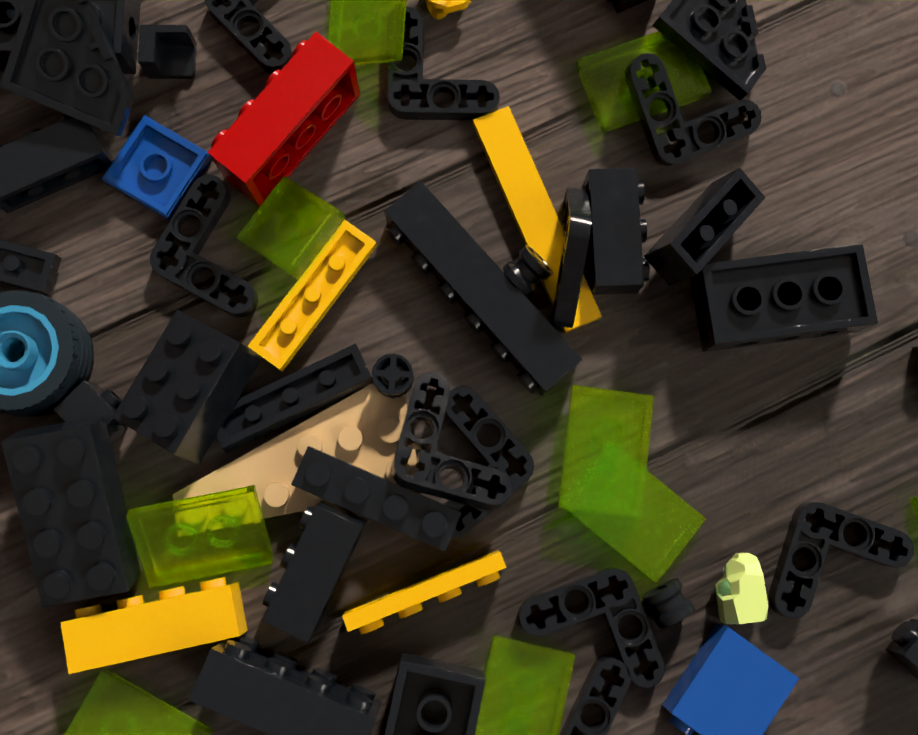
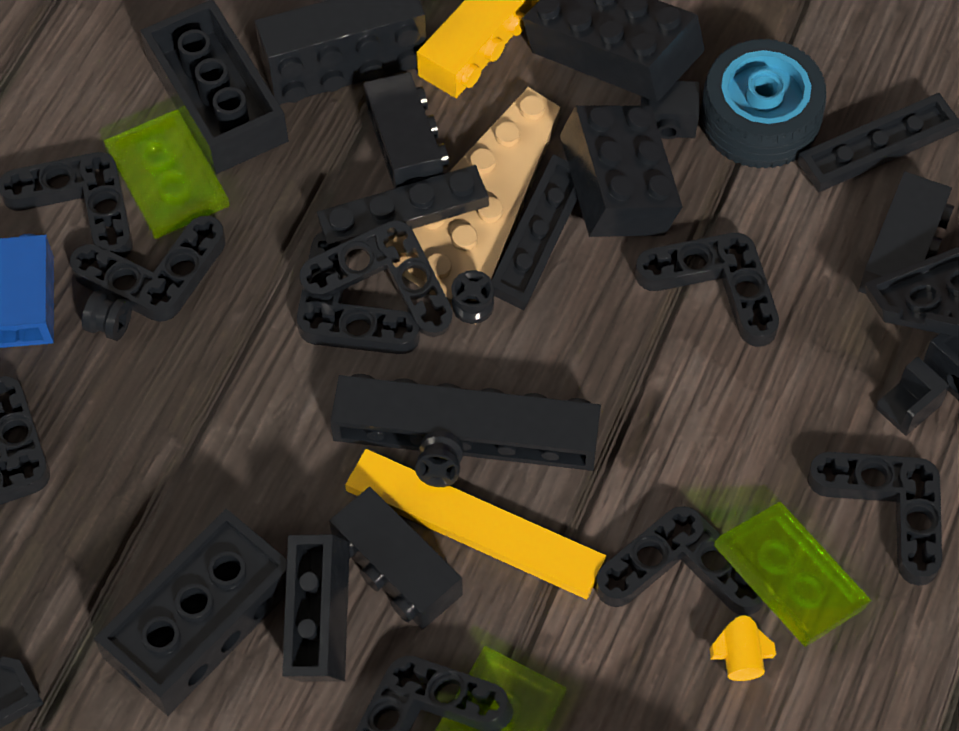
camera: 145 degrees right, 20 degrees down
(156, 167) = (822, 312): blue tile -> none
(200, 536) = (509, 94): clear neon green tile -> none
(286, 118) = (752, 408): red brick -> none
(291, 227) = (667, 346): clear neon green tile -> none
(313, 295) = (597, 315): yellow plate -> none
(409, 599) = (313, 177): yellow plate -> none
(576, 235) = (420, 489): black beam -> none
(606, 451) = (251, 381): clear neon green tile -> none
(655, 538) = (191, 363): clear neon green tile -> none
(742, 591) = (50, 366): yellowish green rock -> none

